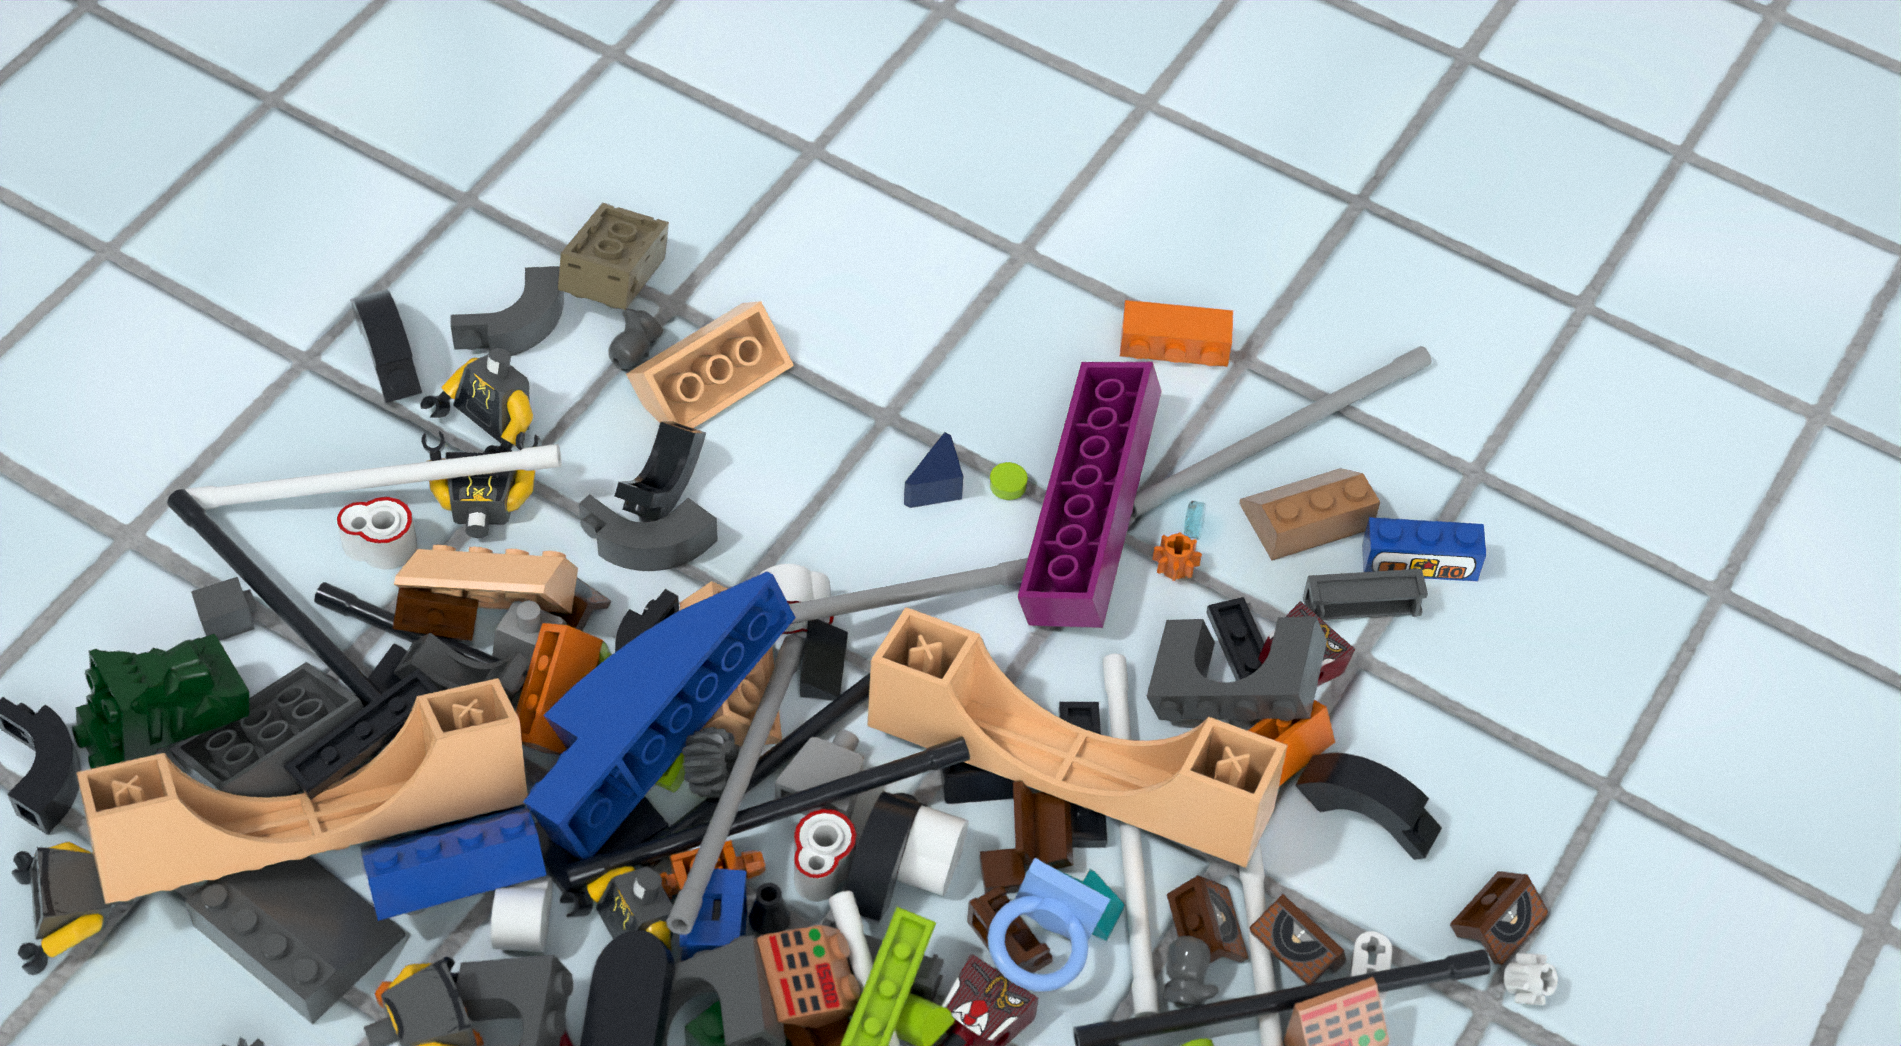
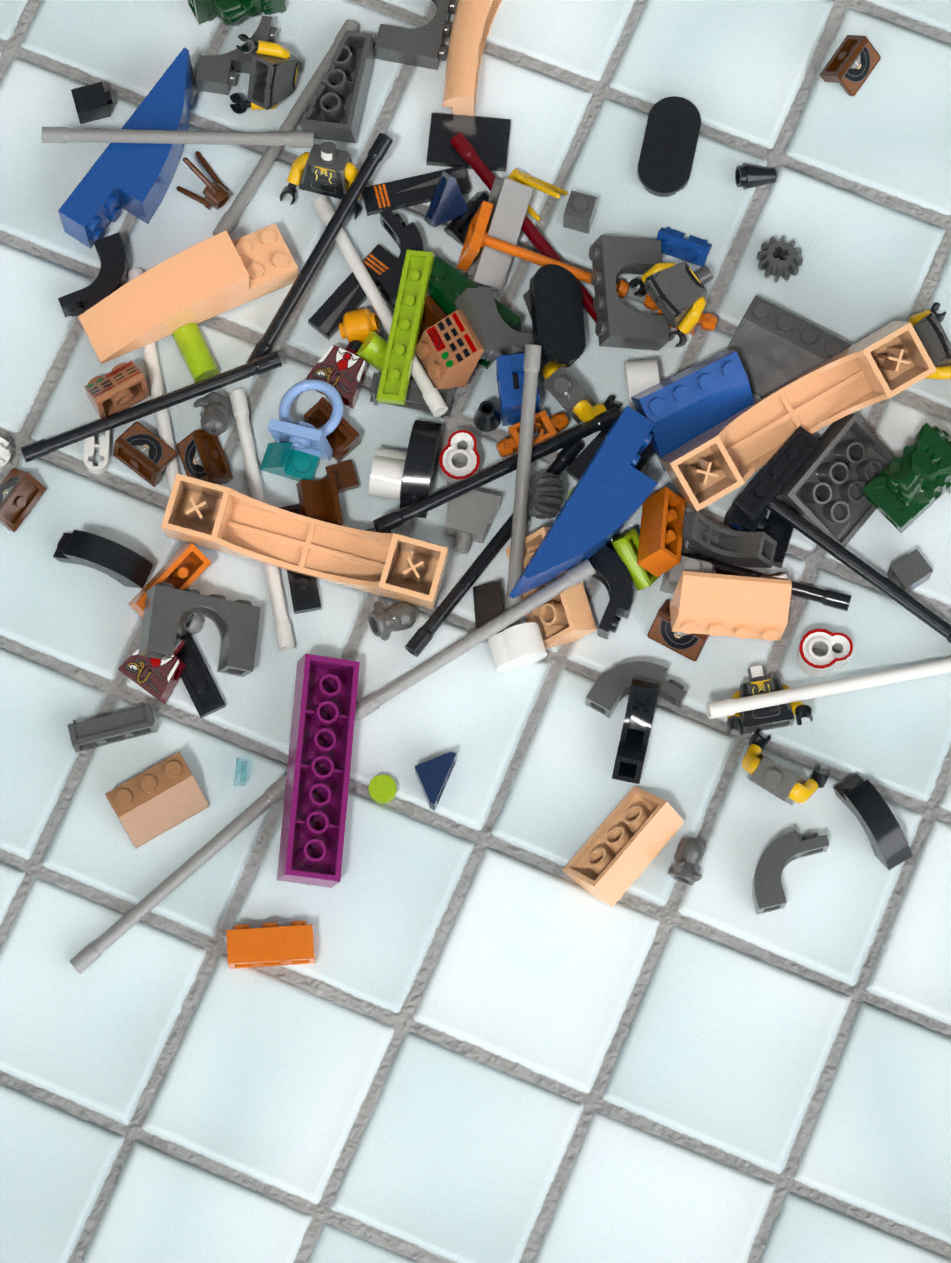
camera: 175 degrees right, 20 degrees up
(613, 256) = (720, 923): dark tan piece -> none
(1177, 556) = (244, 734): orange gear -> none
(1436, 547) = (70, 773): blue brick -> none

